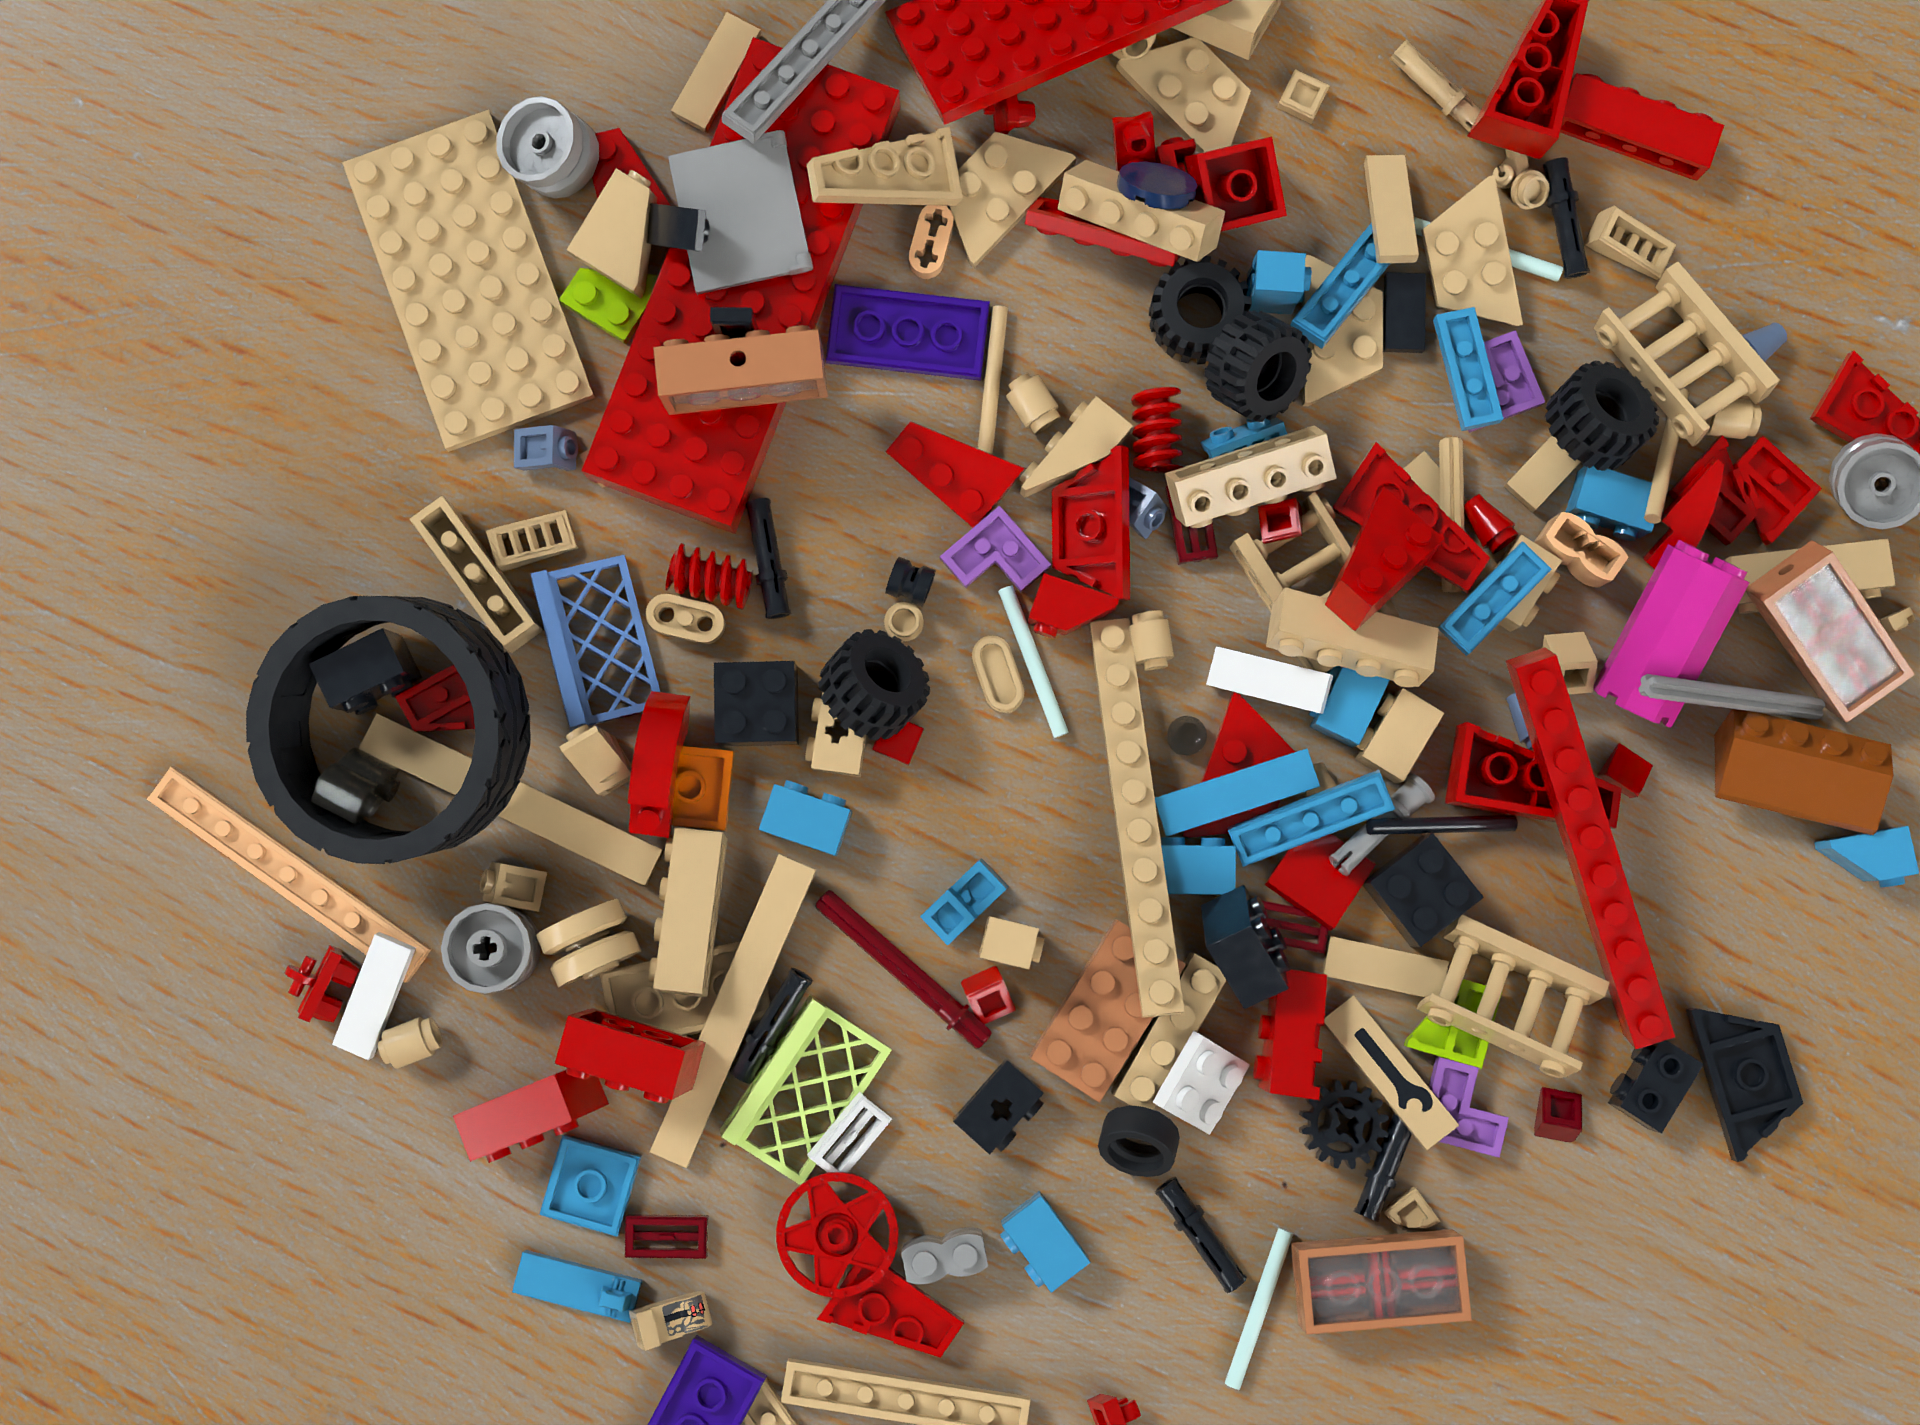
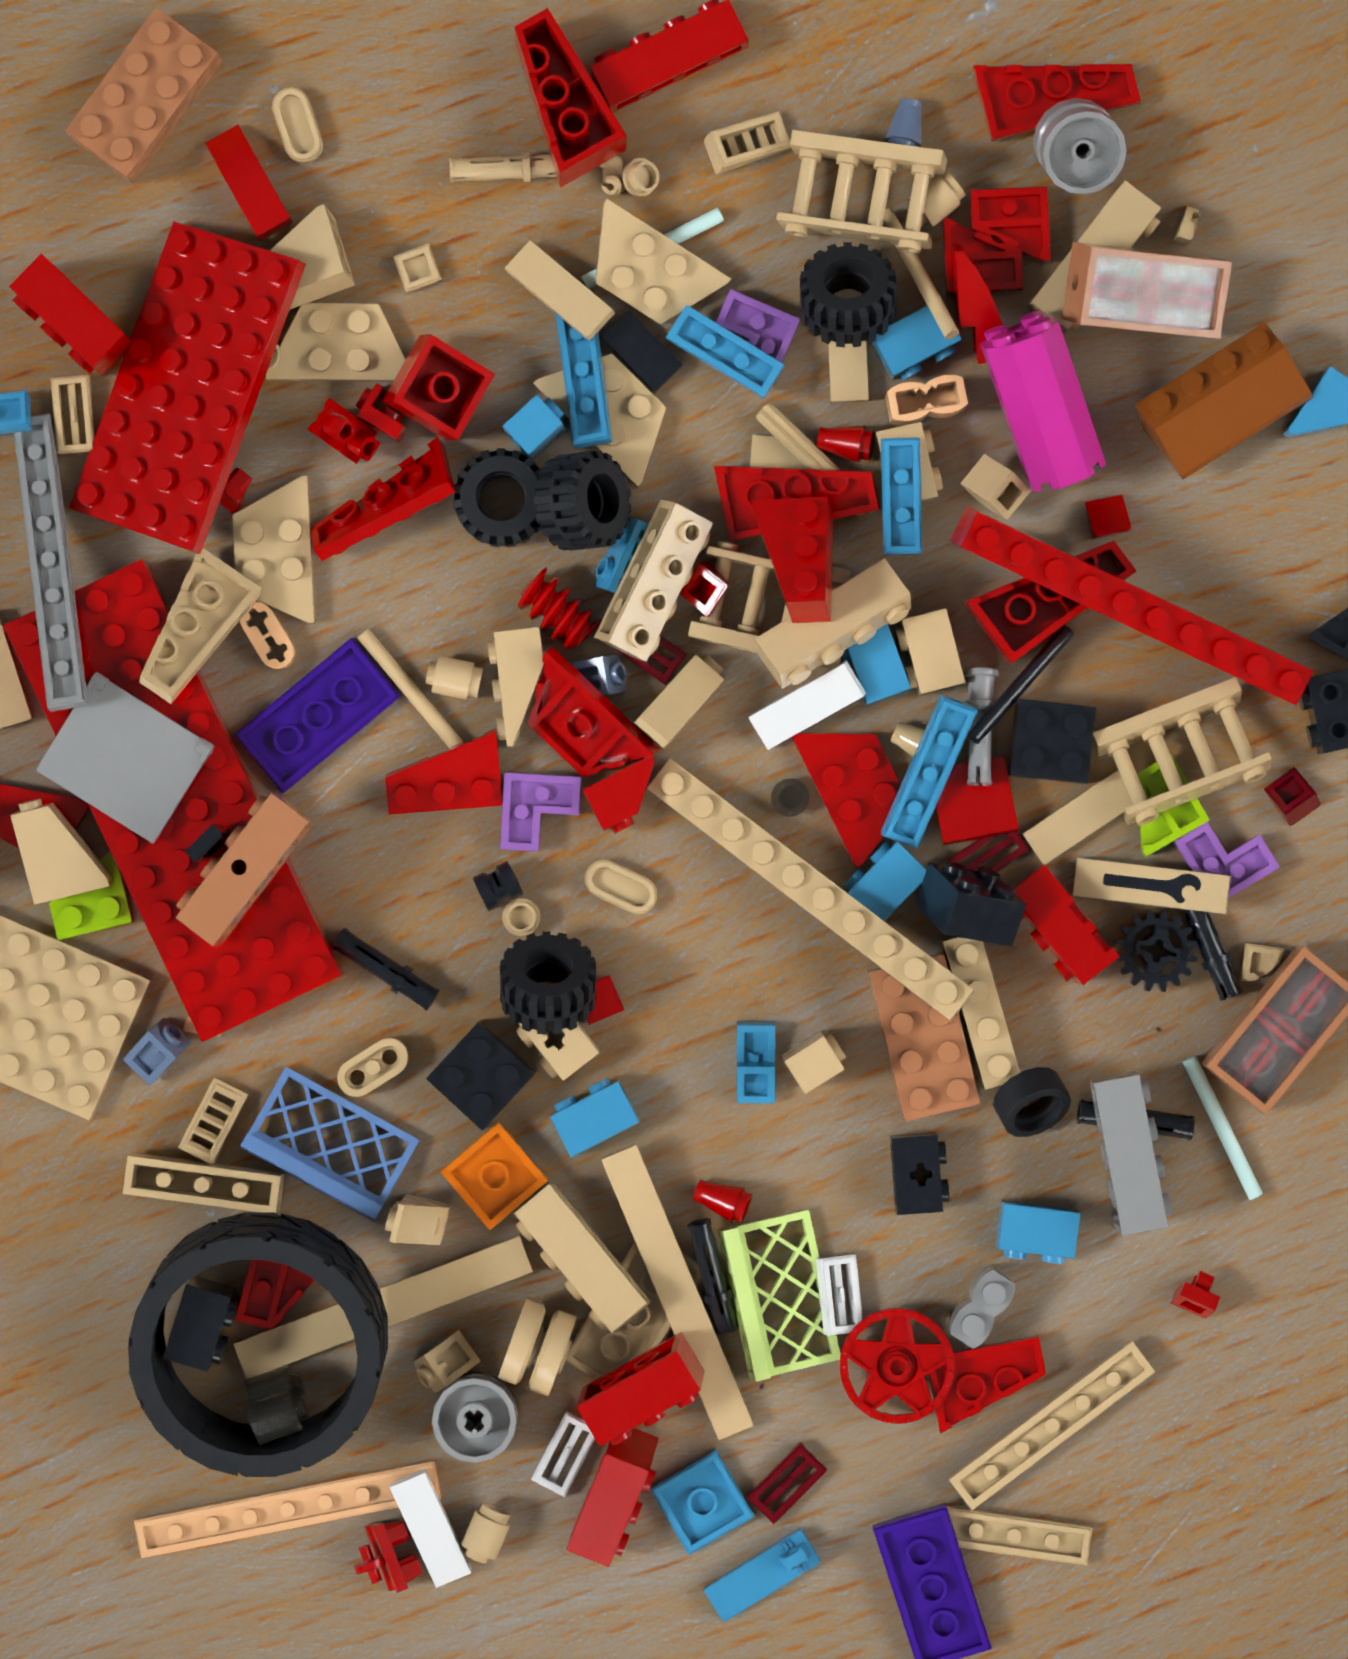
camera: 40 degrees left, 5 degrees up
(495, 1054) = (550, 1482): none -> white tile
(655, 763) = (457, 1182): red arch -> none
(670, 1319) = (844, 1532): tan leg -> none
(677, 227) = (96, 814): black slope -> none
(709, 576) = (359, 1022): red piece -> none
(837, 978) = (724, 1200): none -> red cone
(903, 969) = (761, 1149): dark red axle -> none
(988, 995) = (835, 1108): red slope -> none
(1033, 661) = (635, 853): light aqua bar -> none
(1093, 195) = (393, 474): tan brick -> none
(1151, 640) = (700, 758): tan brick -> none
(1158, 183) = (387, 448): dark blue tile -> none
(1174, 1257) = (1130, 1153): none -> light grey wedge
(1179, 582) = (680, 700): none -> tan slope
(1201, 1083) = (1034, 1021): white plate -> none
(1236, 792) = (862, 804): dark azure tile -> none
(1568, 229) = (684, 170): black pin -> none
(1731, 697) = (1125, 404): light grey axle -> none

